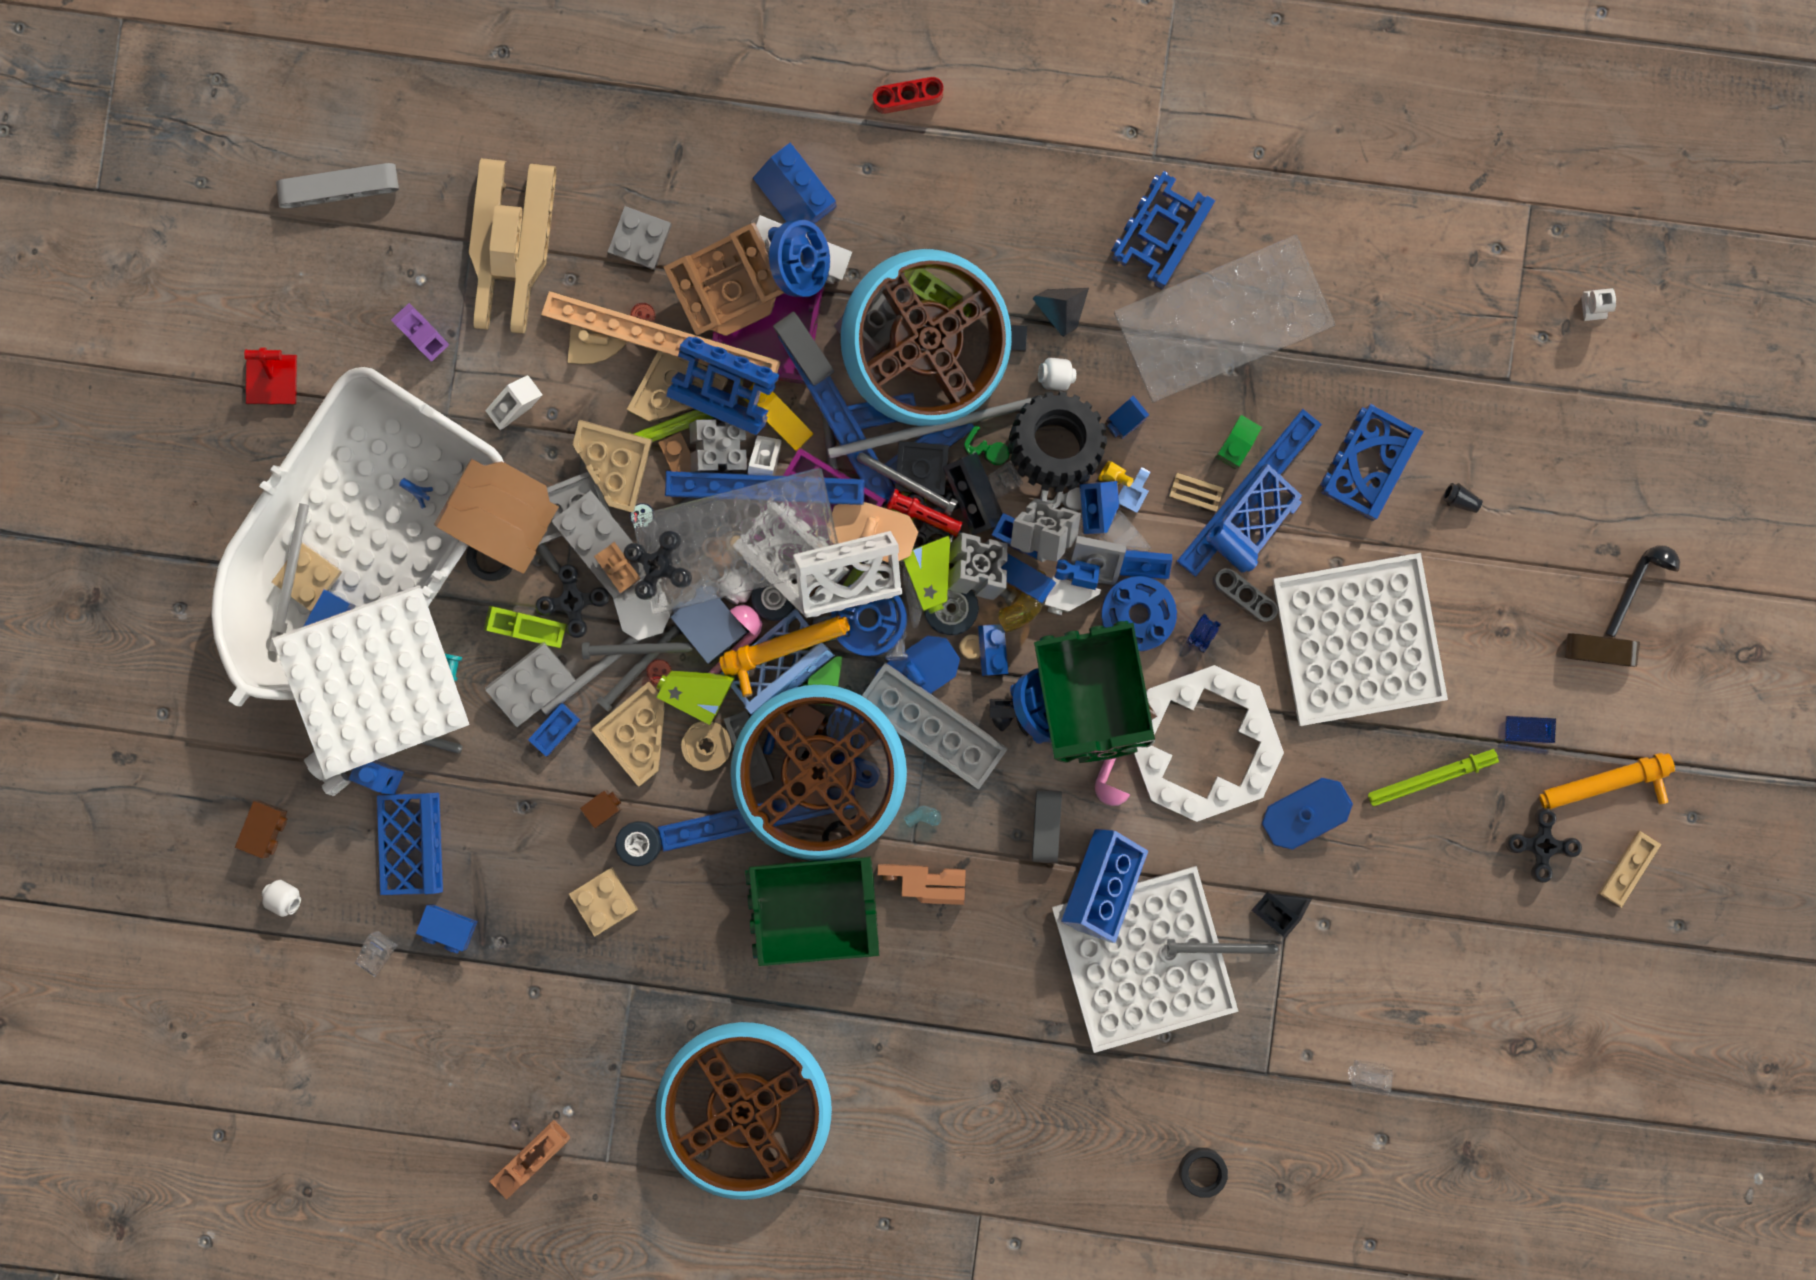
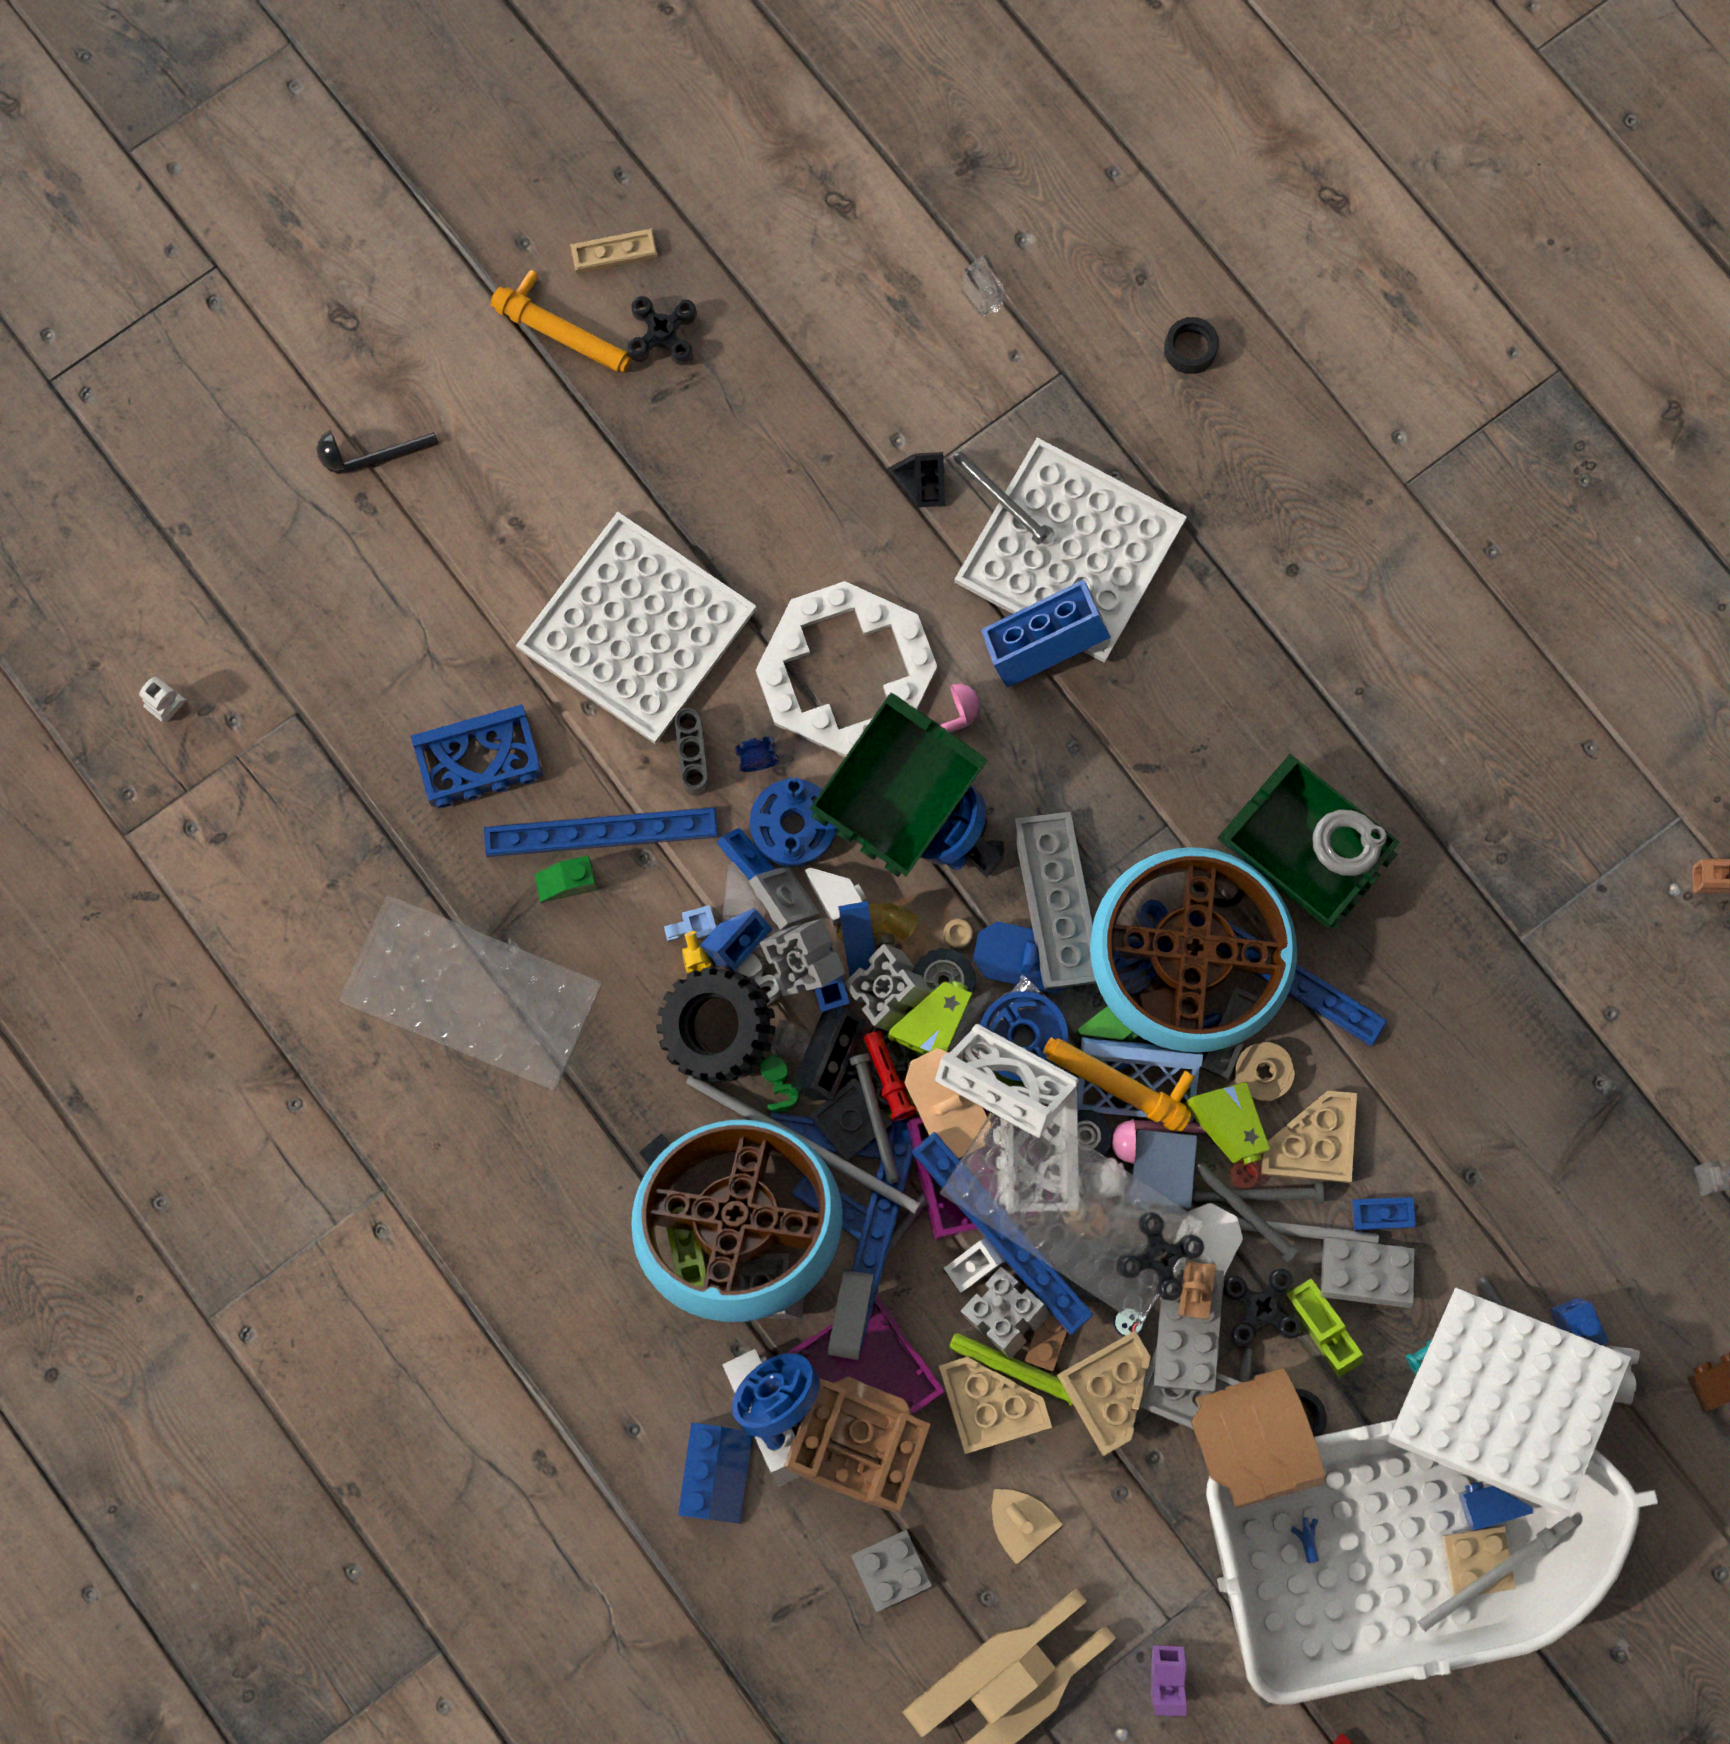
camera: 140 degrees left, 10 degrees down
(430, 844) = (1590, 1218): blue fence -> none
(446, 928) = (1638, 1137): blue brick -> none
(513, 402) = (1145, 1534): white slope -> none
(601, 808) = (1406, 1107): reddish brown brick -> none
(603, 901) = (1479, 1029): tan plate -> none
(630, 843) = (1409, 1038): black wheel -> none
(633, 329) = (963, 1457): light nougat plate -> none
(643, 311) = (956, 1498): clear red tile -> none
(684, 1148) = (1539, 668): reddish brown wheel -> none
(715, 401) = (970, 1350): blue fence -> none
(784, 420) = (926, 1290): yellow slope -> none
(799, 951) = (1364, 826): none -> light grey piece
(898, 103) = (519, 1454): red beam -> none
(917, 877) = (1193, 777): nougat plate -> none
(924, 814) = (1135, 837): clear light blue arm -> none
(993, 650) = (943, 912): blue plate -> none
(1046, 826) = (1044, 728): dark grey beam -> none
(1056, 374) = (656, 1086): white head -> none
(1062, 307) = (593, 1139): black slope -> none
(1081, 573) = (808, 896): blue plate -> none
(1126, 418) = (637, 989): blue slope -> none
(1178, 239) = (437, 1093): blue fence -> none
(1216, 499) = (632, 853): tan tile -> none
(1232, 542) = (657, 806): blue piece -> none
(1307, 813) = (822, 533): blue shield -> none
(1433, 777) = (692, 464): lime axle -> none
(1462, 498) = (437, 659): black cone -> none
(1530, 729) = (576, 427): clear blue tile -> none
(1602, 650) = (455, 431): dark brown beam -> none

